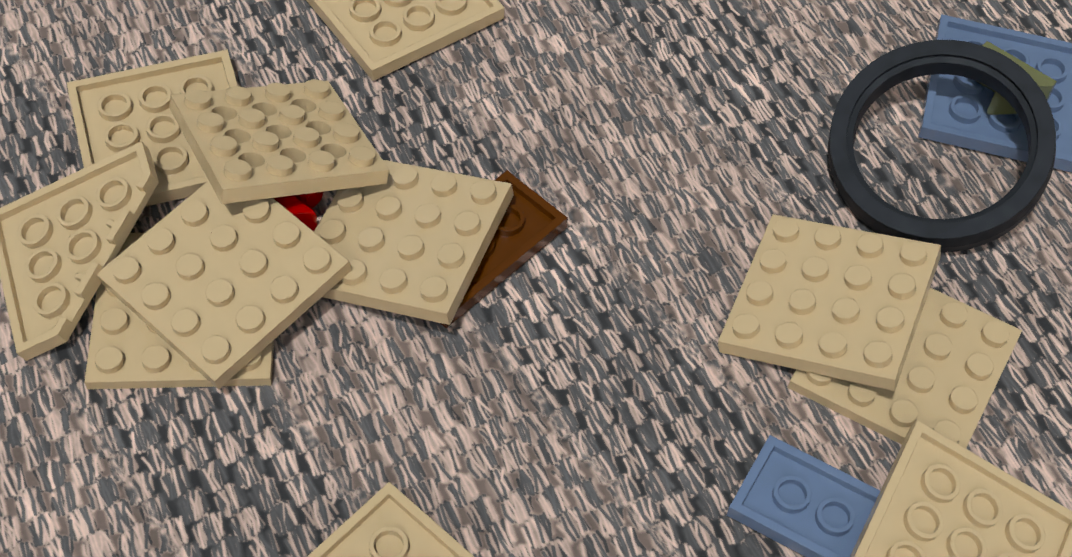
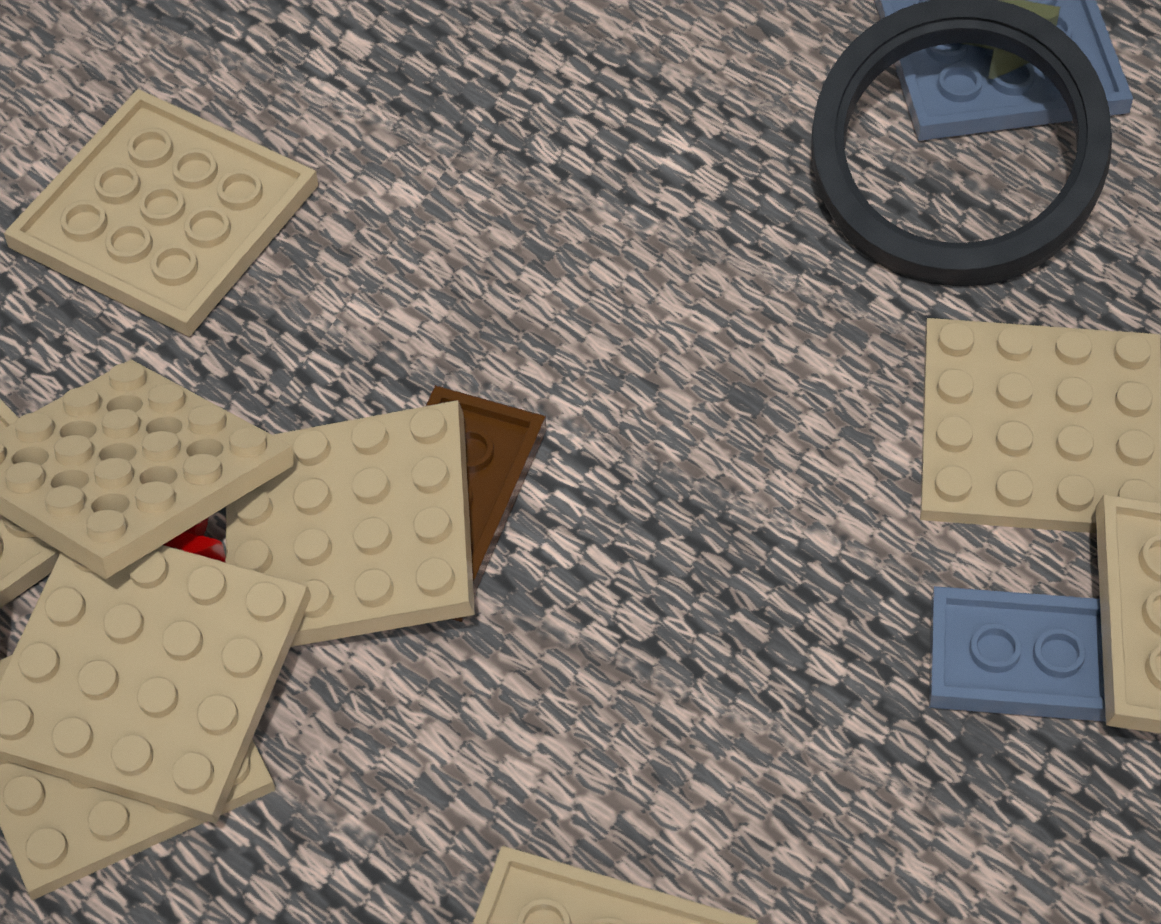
camera: 20 degrees left, 0 degrees up
(831, 301) = (923, 390): tan plate -> none

